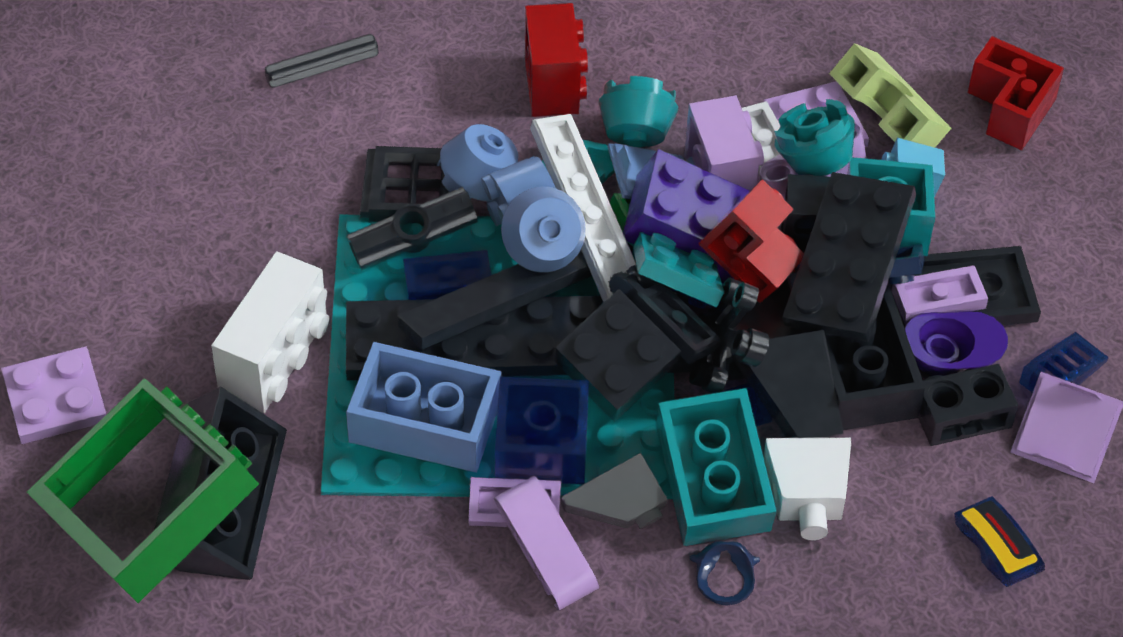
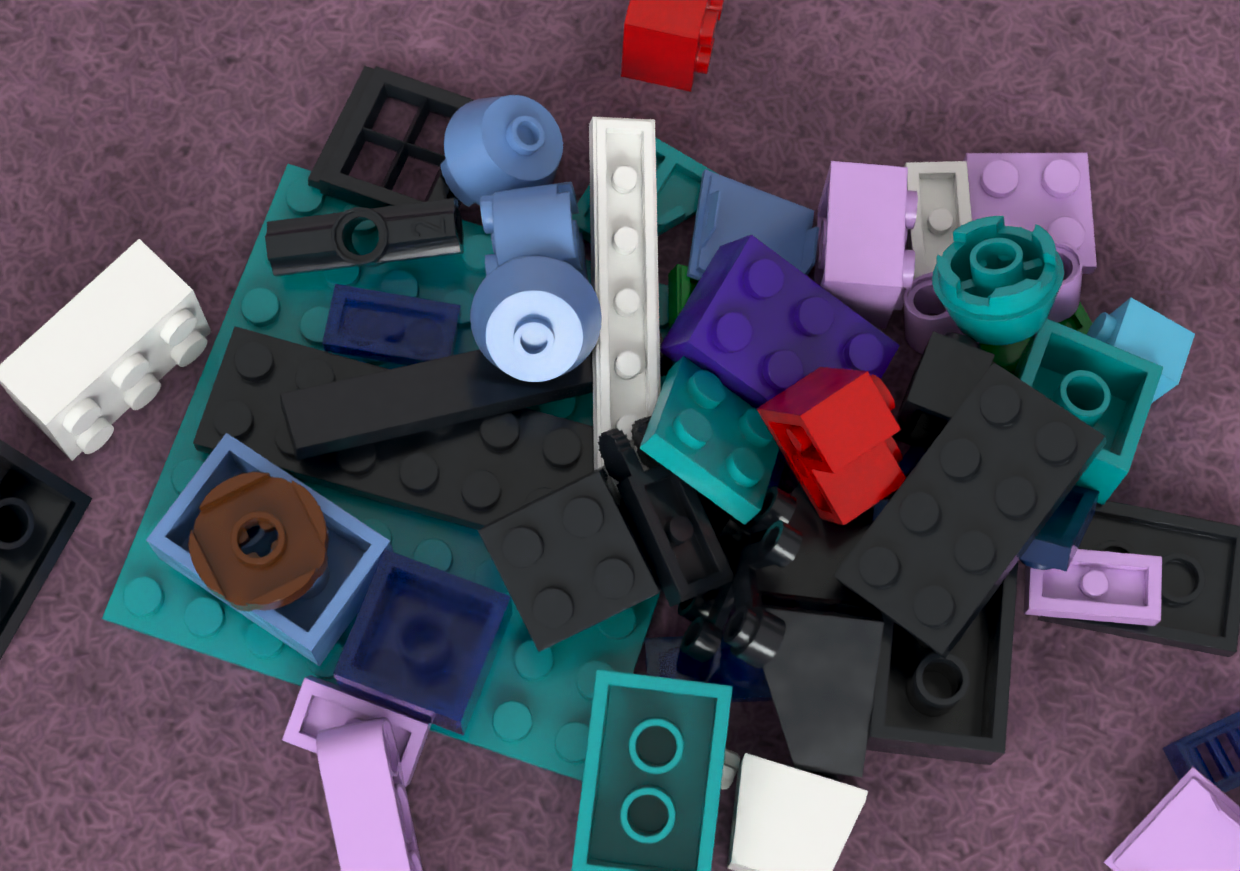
camera: 15 degrees right, 20 degrees up
(426, 408) = (222, 528): none -> reddish brown plate
(619, 496) = (503, 775): dark grey slope -> none
(637, 111) = (765, 131): teal cone -> none
(882, 89) = (1139, 178): yellowish green arch -> none
(955, 341) = (1087, 673): dark purple piece -> none
(965, 410) = (1064, 787): black brick -> none

